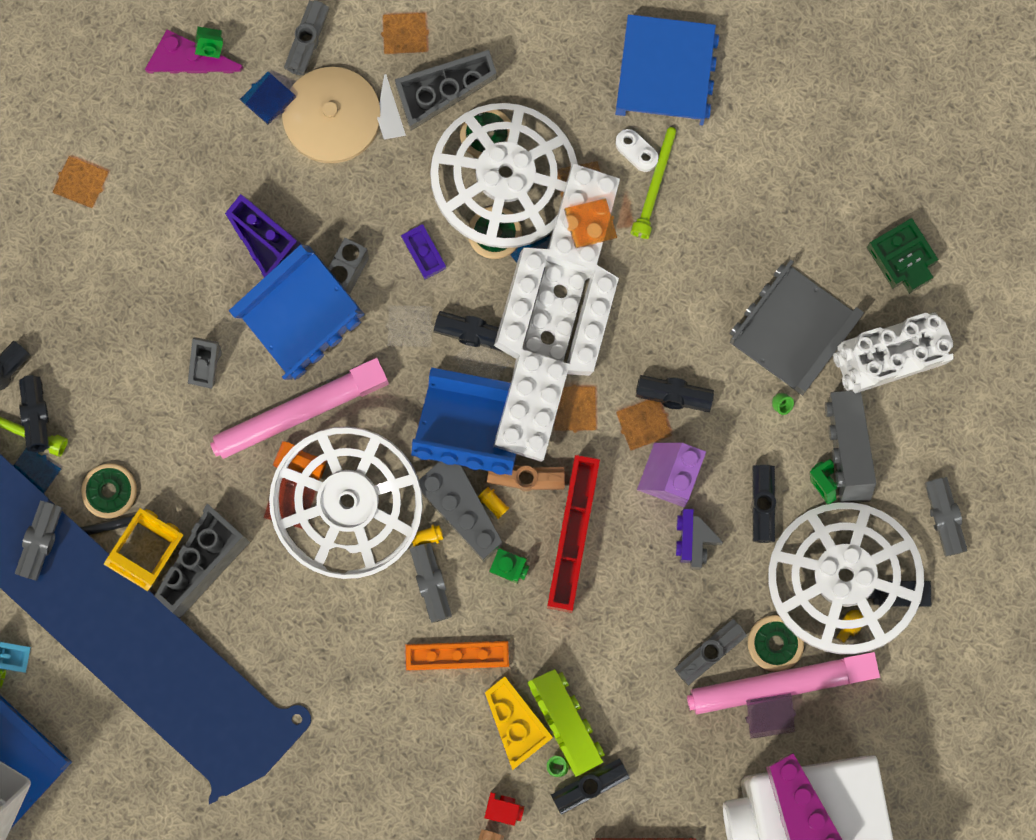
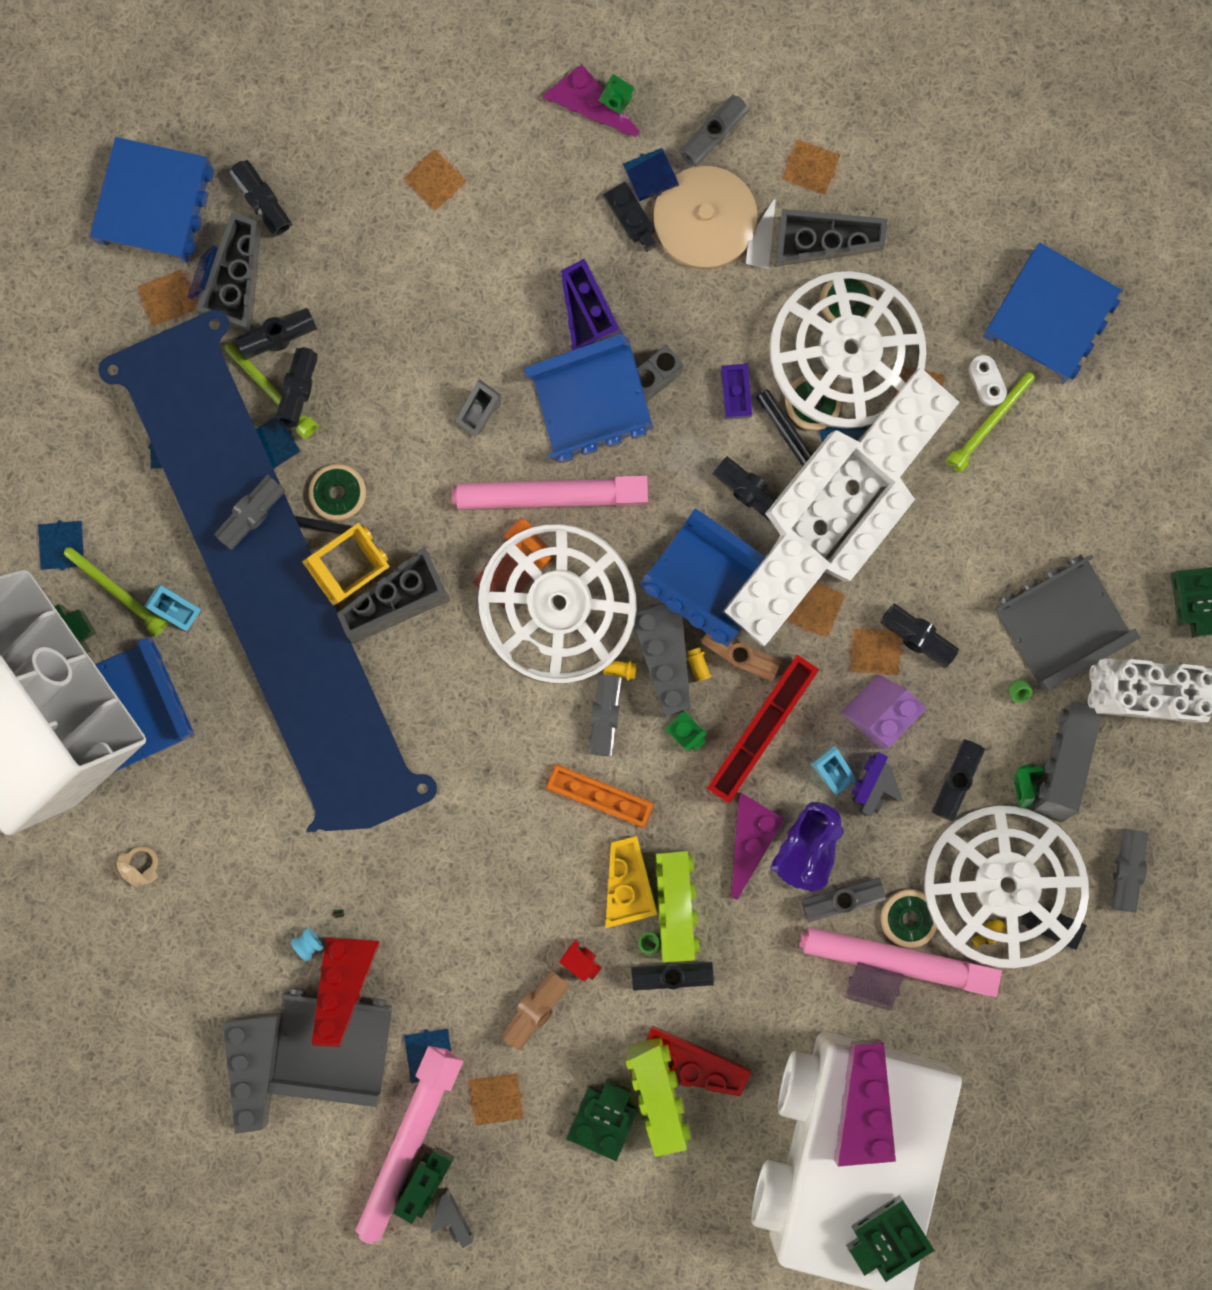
camera: 25 degrees right, 5 degrees up
(265, 140) = (630, 215): none -> black hinge
(478, 264) = (784, 426): none -> black axle
(590, 223) = (911, 434): clear orange piece -> none
(607, 629) = (754, 833): none -> magenta wing
(652, 543) = (833, 770): none -> medium azure slope
(660, 619) = (810, 848): none -> dark purple hair

